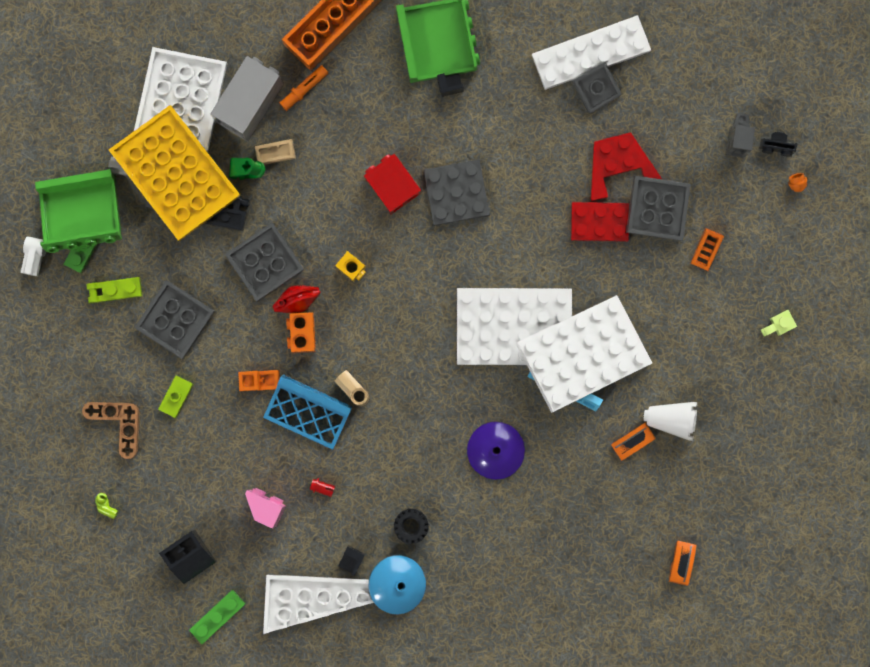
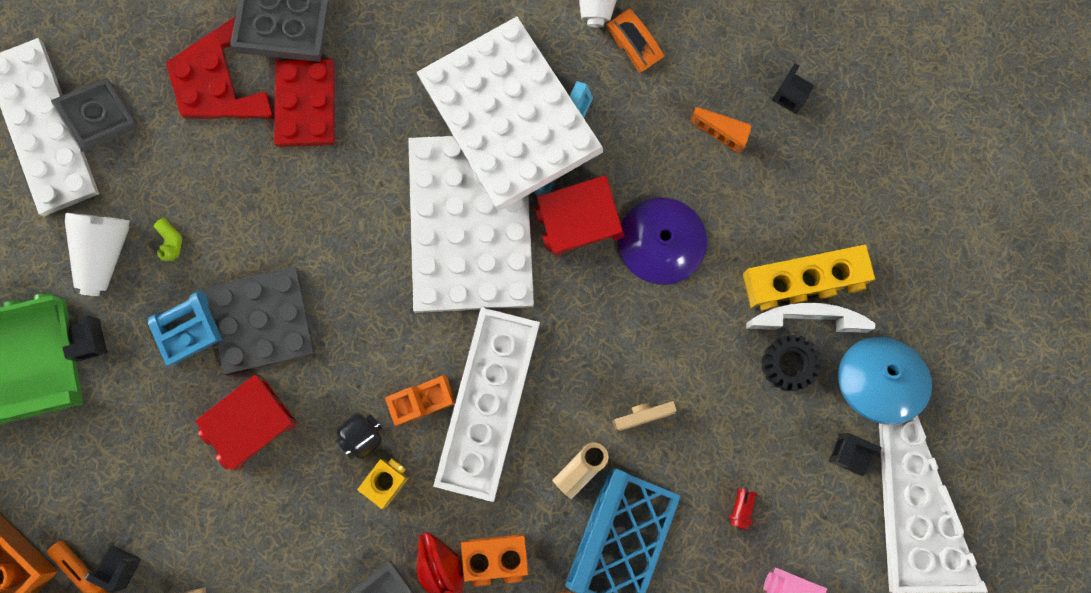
camera: 95 degrees left, 5 degrees down
(309, 105) = (114, 570): none -> black panel
(380, 252) = (359, 436): none -> black head
(383, 428) = (644, 414): none -> tan plate
(396, 332) = (487, 405): none -> white plate
(400, 291) = (420, 400): none -> orange slope
(435, 564) = (845, 319): none -> white slope
(447, 149) = (188, 337): none -> dark azure plate
(475, 571) = (852, 261): none -> yellow brick
(506, 90) = (94, 249): none -> white cone
(511, 137) = (172, 240): none -> lime arm
(512, 396) = (579, 216): none -> red panel
(566, 498) = (723, 128): none -> orange slope
(593, 545) = (793, 91): none -> black panel

